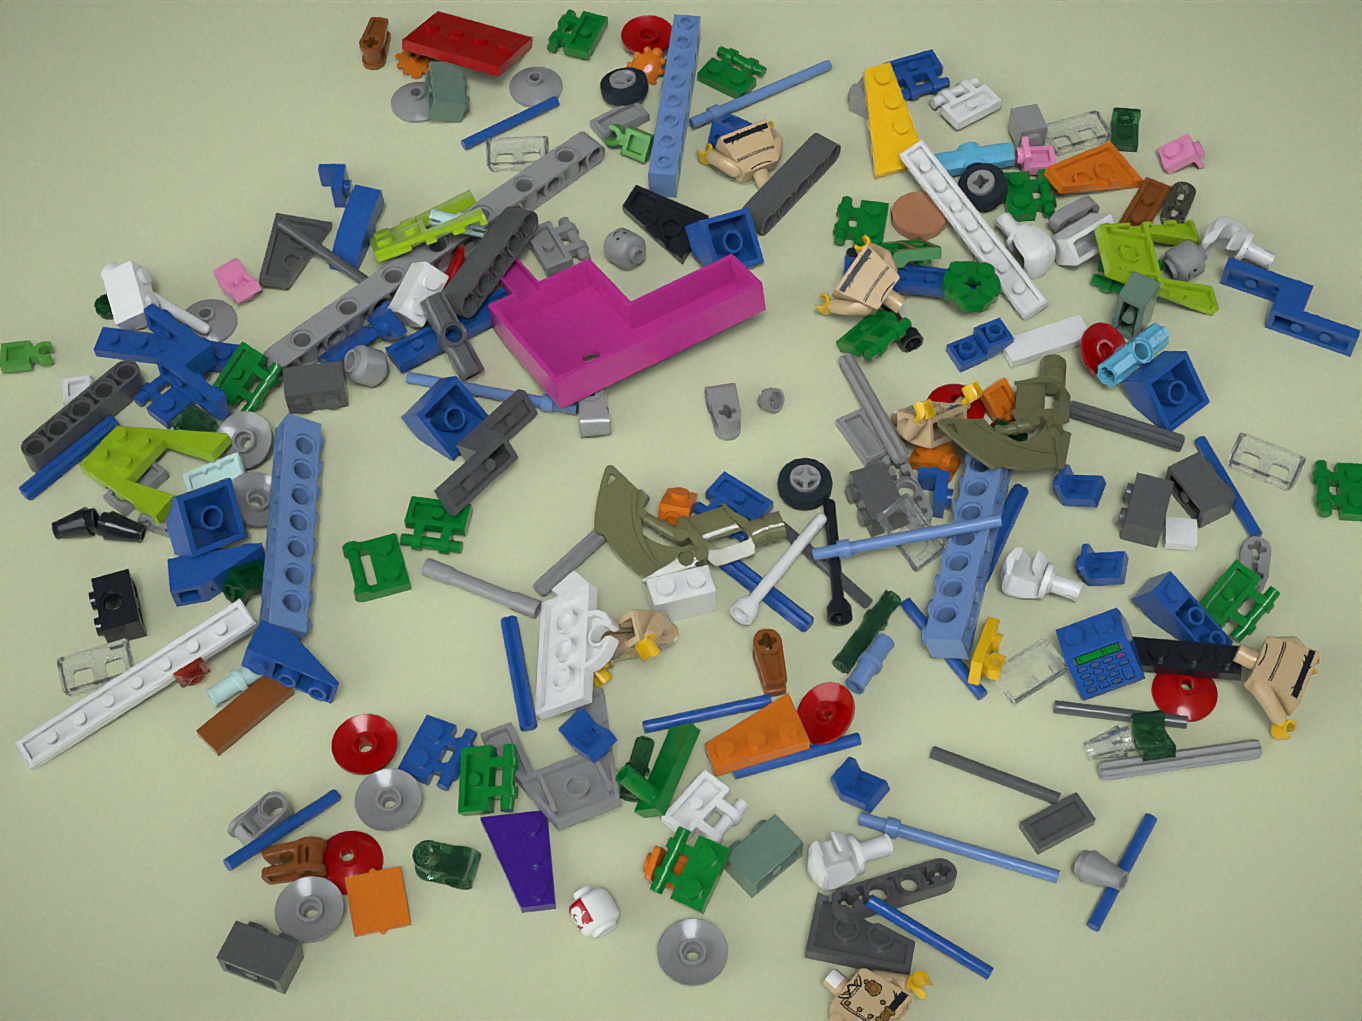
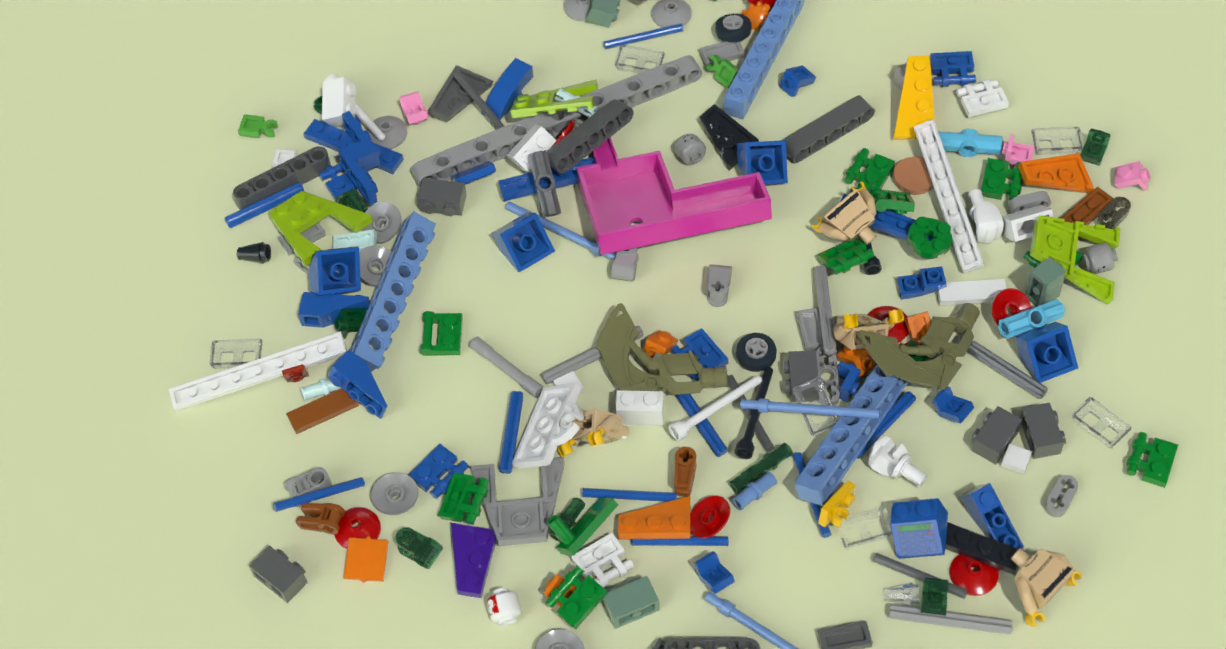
camera: 20 degrees right, 0 degrees up
(117, 527) = (281, 262): black cone -> none
(117, 591) = (265, 305): black brick -> none
(241, 373) = (393, 175): green plate -> none
(308, 895) = (316, 543): light grey dish -> none
(337, 178) = (507, 51): blue bracket -> none
(361, 732) = (387, 445): red dish -> none
(366, 365) = (480, 190): light grey head -> none
(386, 323) = (503, 163): blue bracket -> none
(430, 515) = (494, 309): green plate -> none
(486, 452) = (540, 272): dark grey bracket -> none
(551, 250) = (638, 137): light grey plate -> none
(587, 736) = (538, 487): blue bracket -> none
(716, 111) = (794, 61): medium blue bar -> none
(726, 78) = (810, 37): green plate -> none
(746, 152) = (803, 98): tan torso -> none
(774, 395) = (758, 282): light grey hinge -> none
(843, 857) = (684, 619): white piece -> none
(993, 184) = (972, 172): black wheel -> none
(995, 775) = (814, 593): dark grey bar -> none
(1027, 122) = (1021, 126): light grey brick -> none
(1102, 567) = (946, 467): blue bracket -> none
(1231, 593) = (1032, 512): green plate -> none
(1233, 236) = (1146, 249): white piece -> none
(1239, 505) = (1065, 427): blue bar -> none
(1288, 312) = (1166, 312): blue bracket -> none

